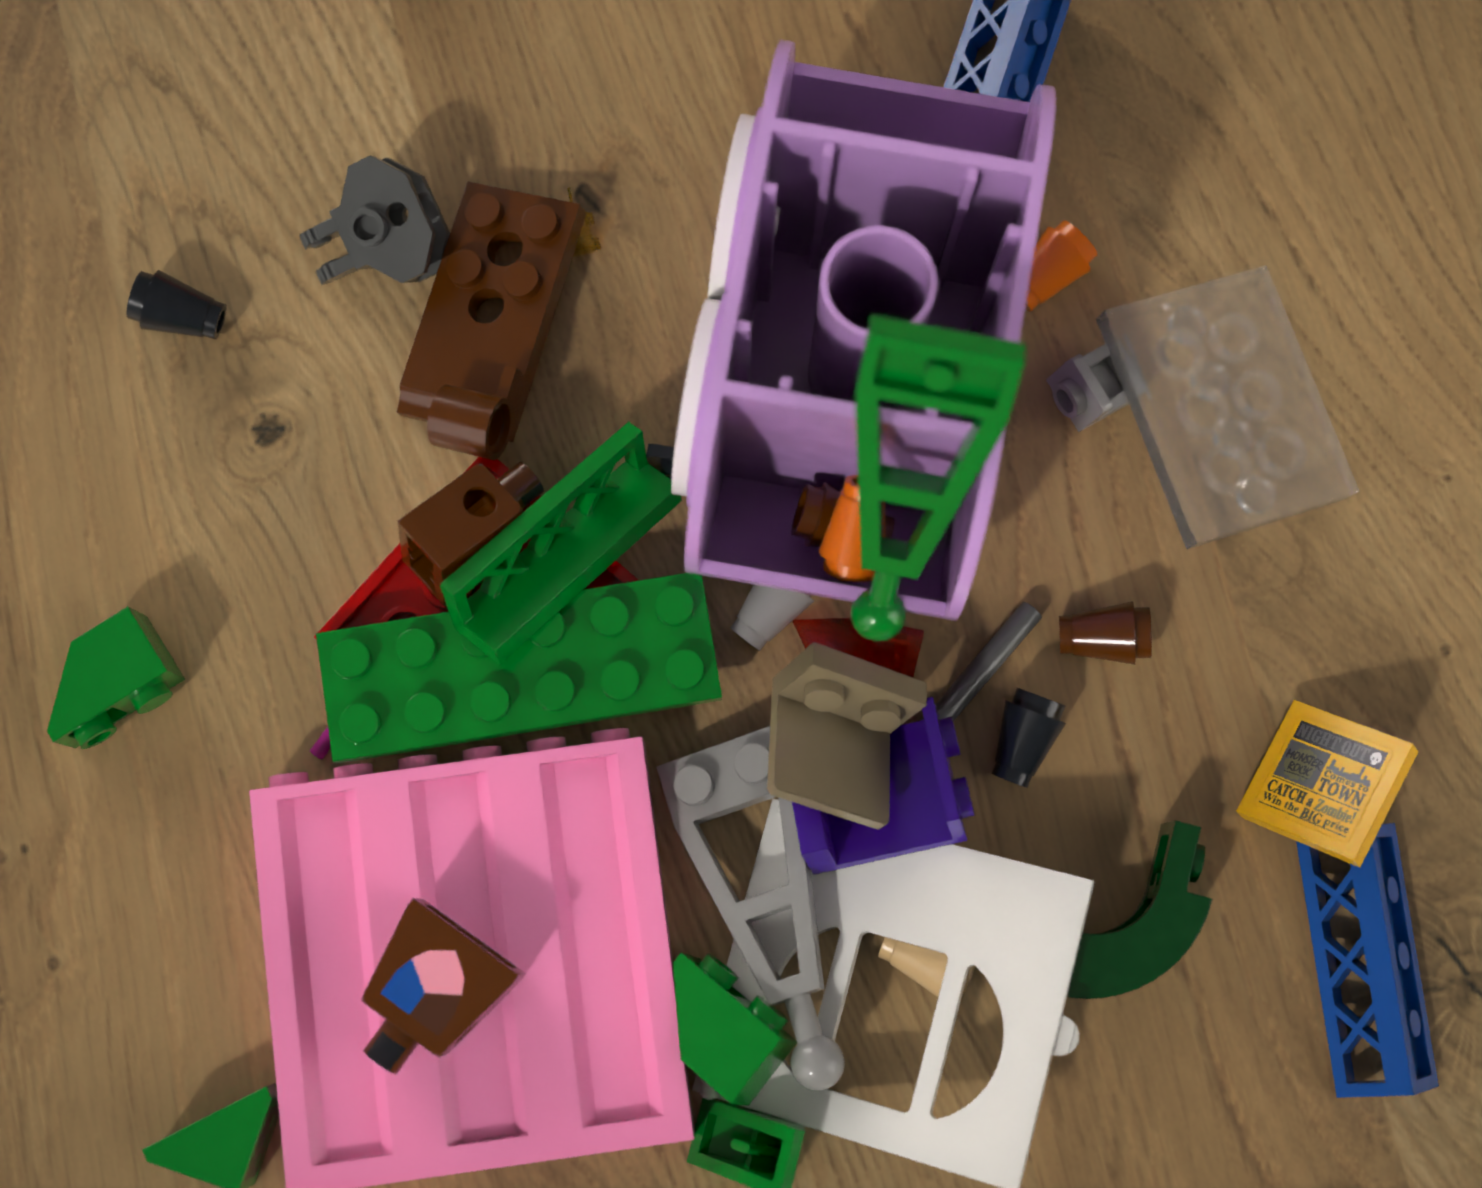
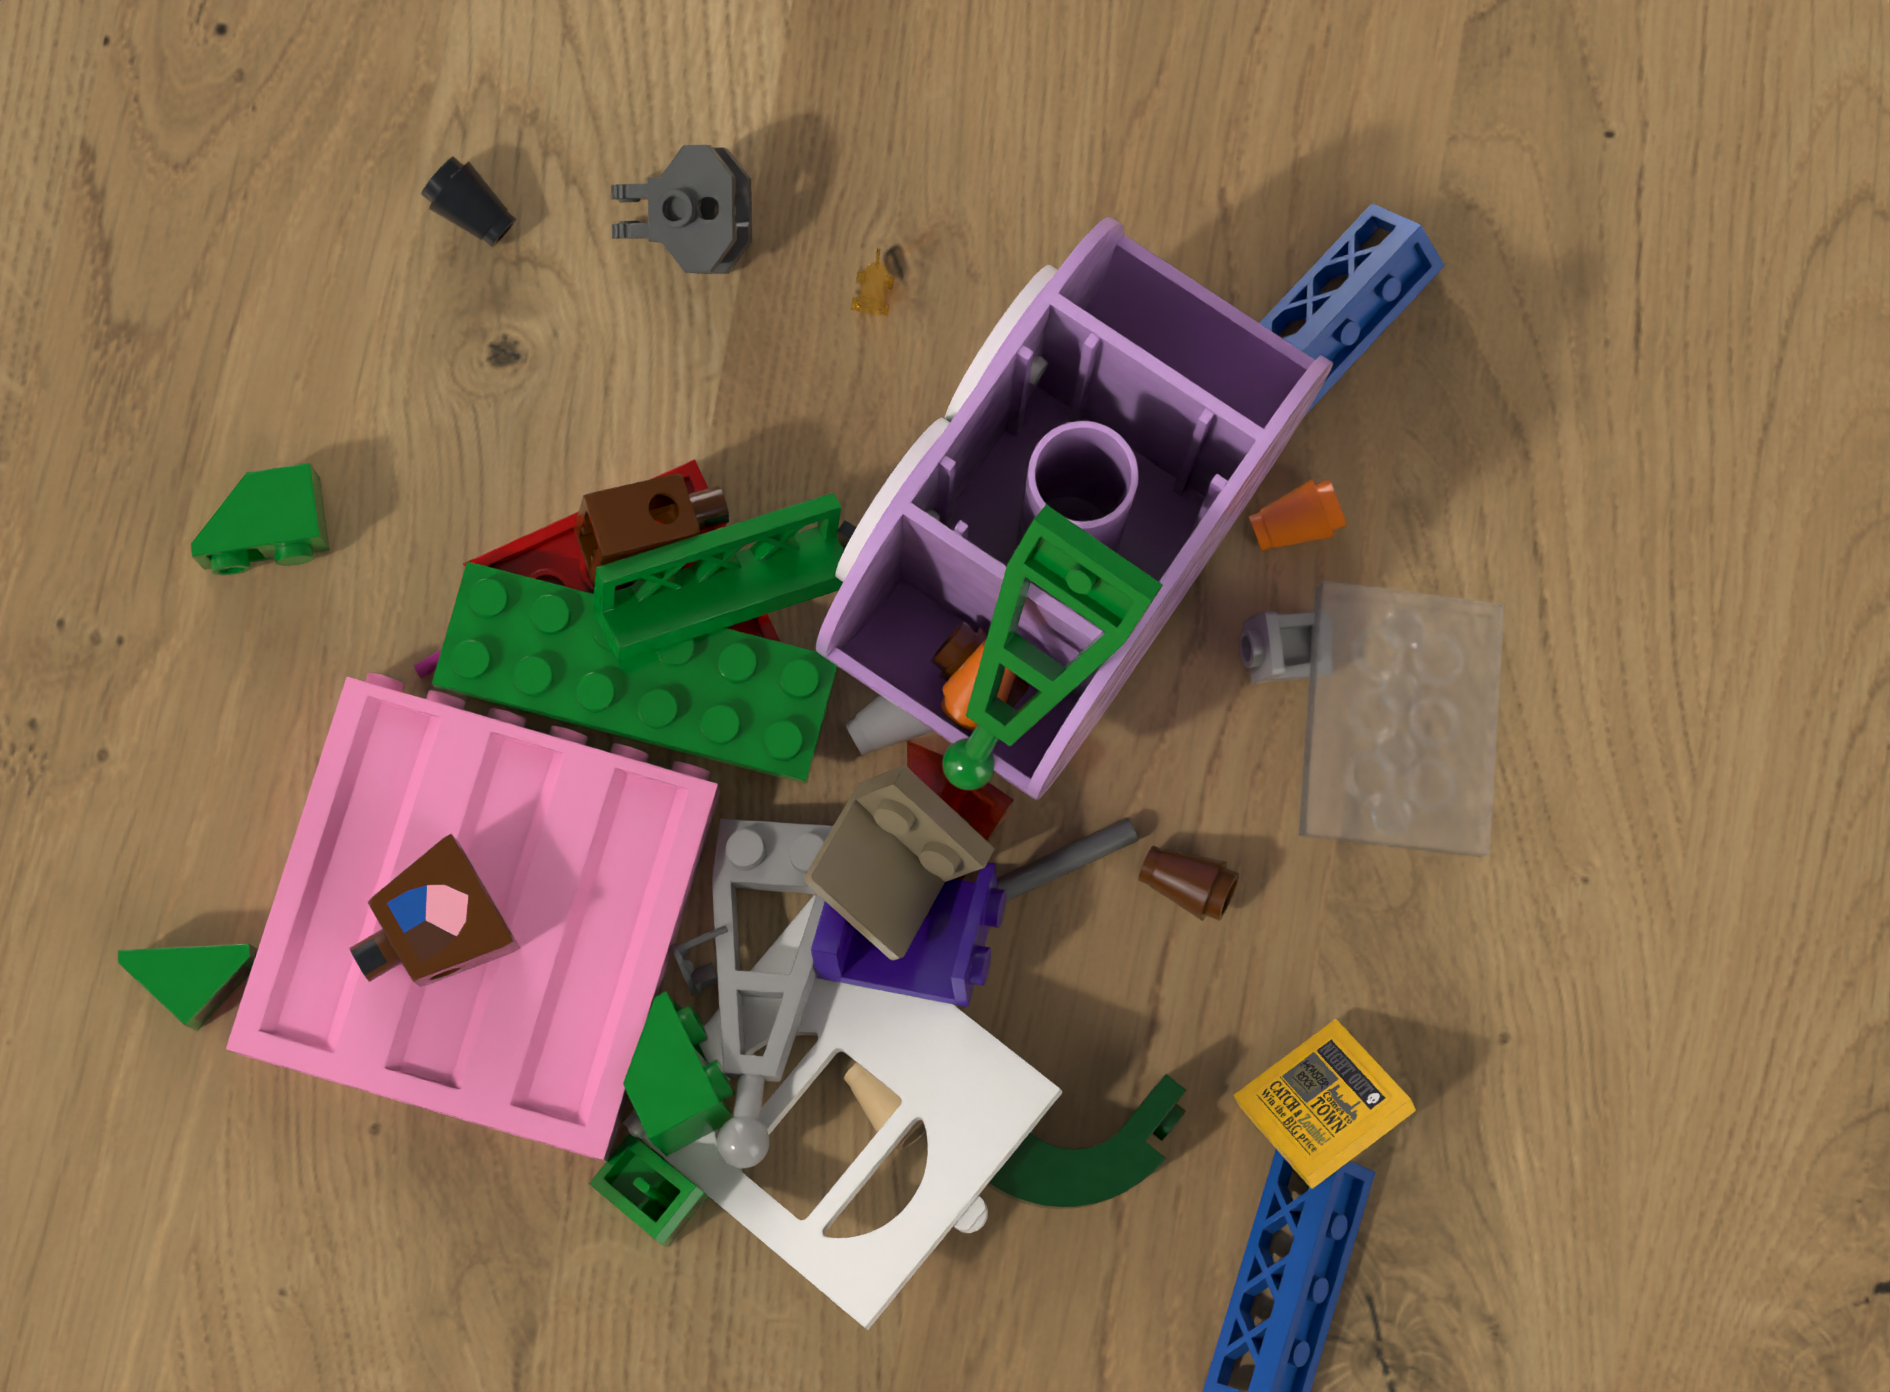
camera: 20 degrees right, 0 degrees up
(475, 375) = (715, 386): reddish brown hinge -> none
(705, 919) = (702, 976): none -> dark grey piece
(1026, 736) = (1071, 940): black cone -> none

